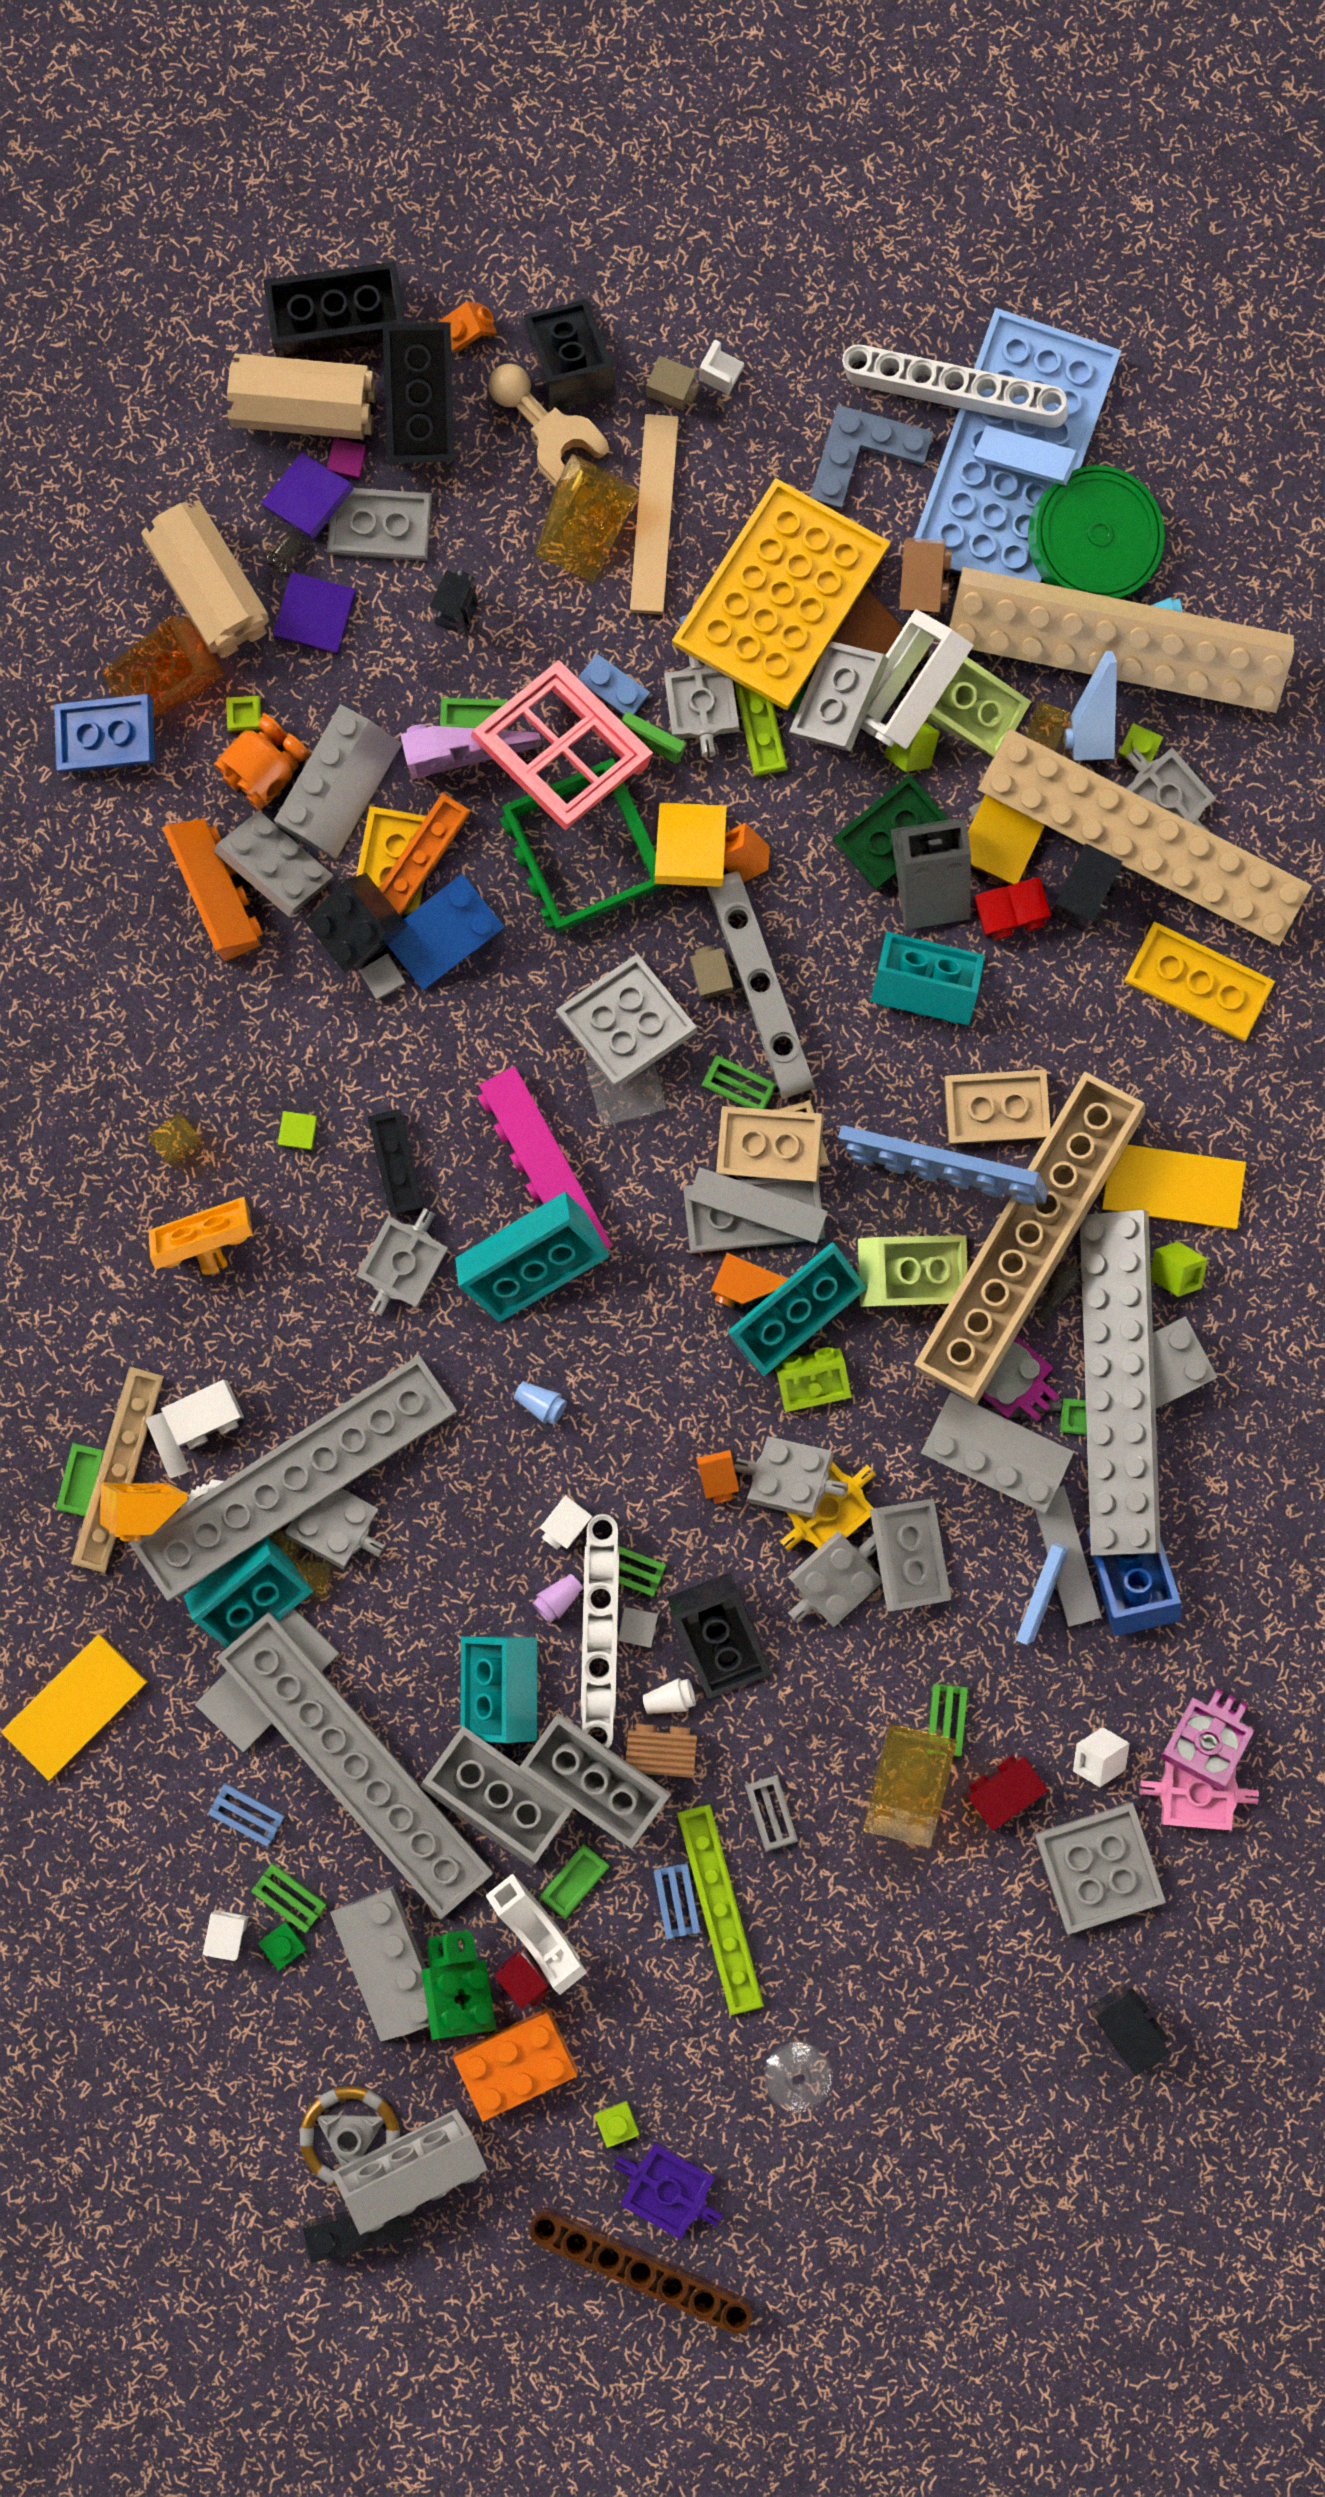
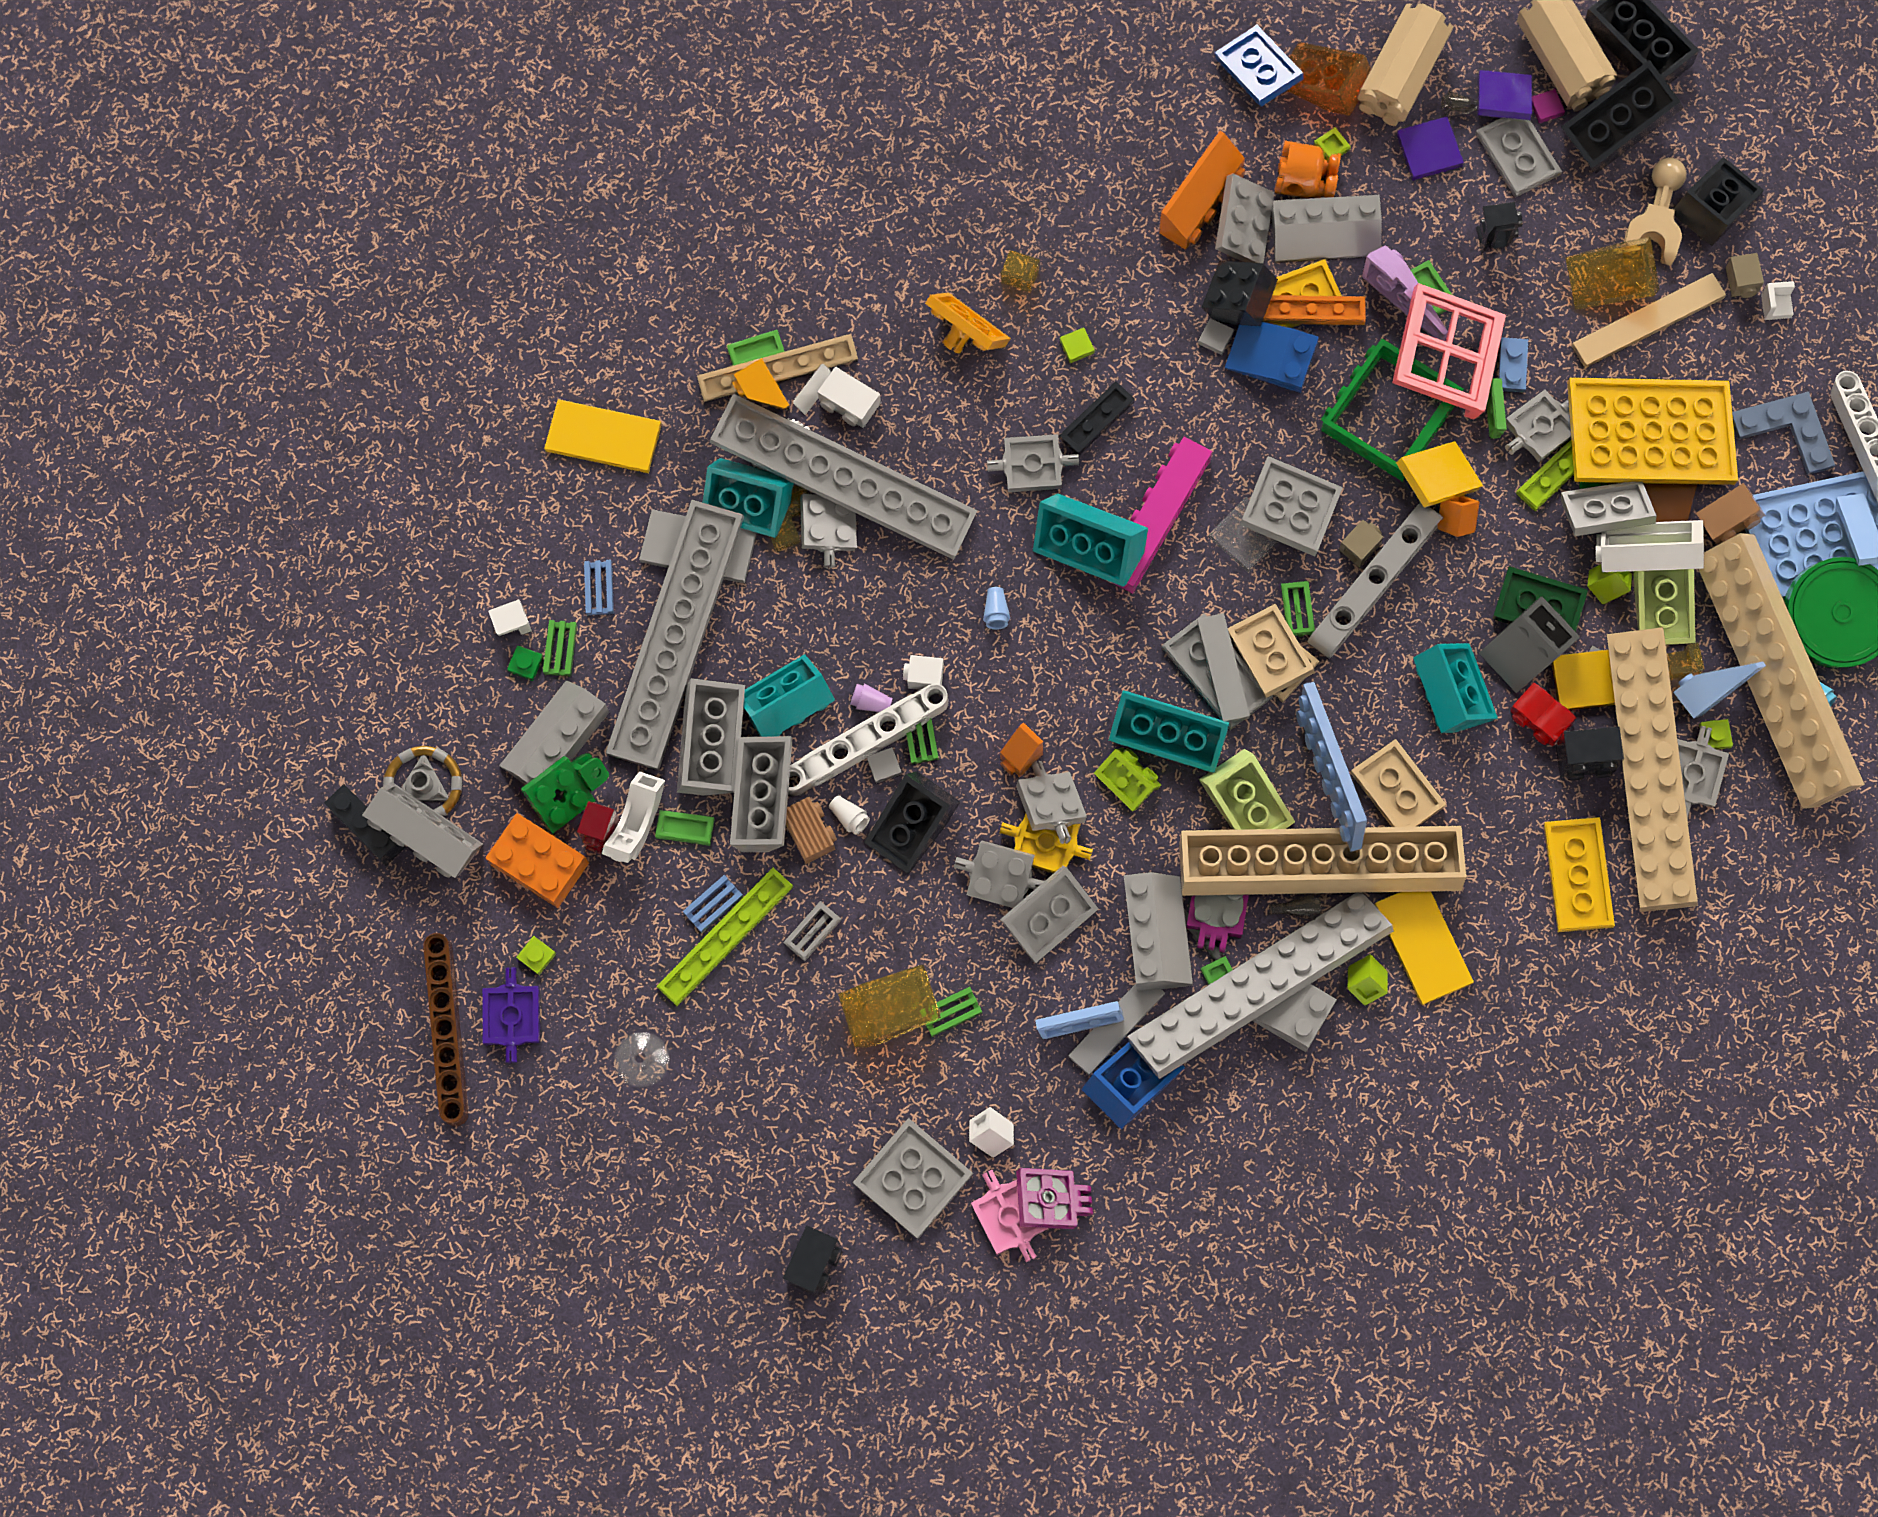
camera: 60 degrees right, 10 degrees down
(469, 323) = (1691, 124): orange bracket -> none
(743, 1282) = (1163, 685): orange slope -> none
(1005, 1791) = (926, 1079): dark red brick -> none

